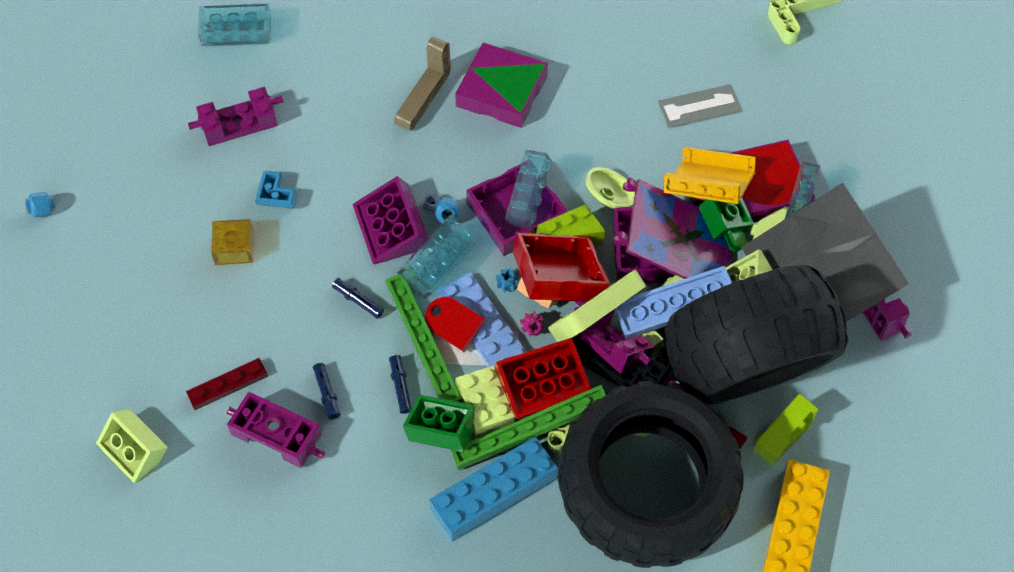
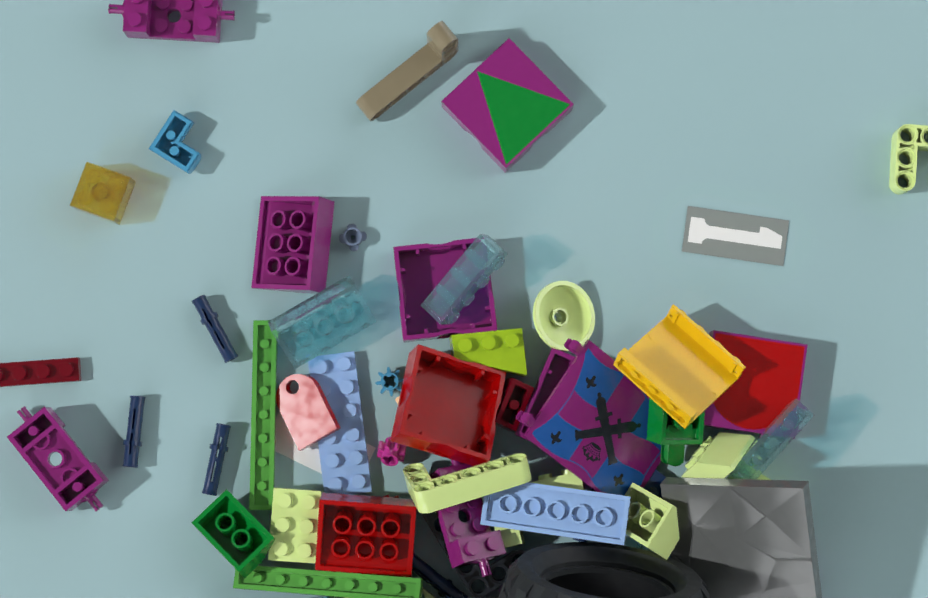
camera: 25 degrees right, 25 degrees up
(443, 206) = (362, 260): dark azure head -> none
(606, 254) = (514, 398): none -> dark red brick

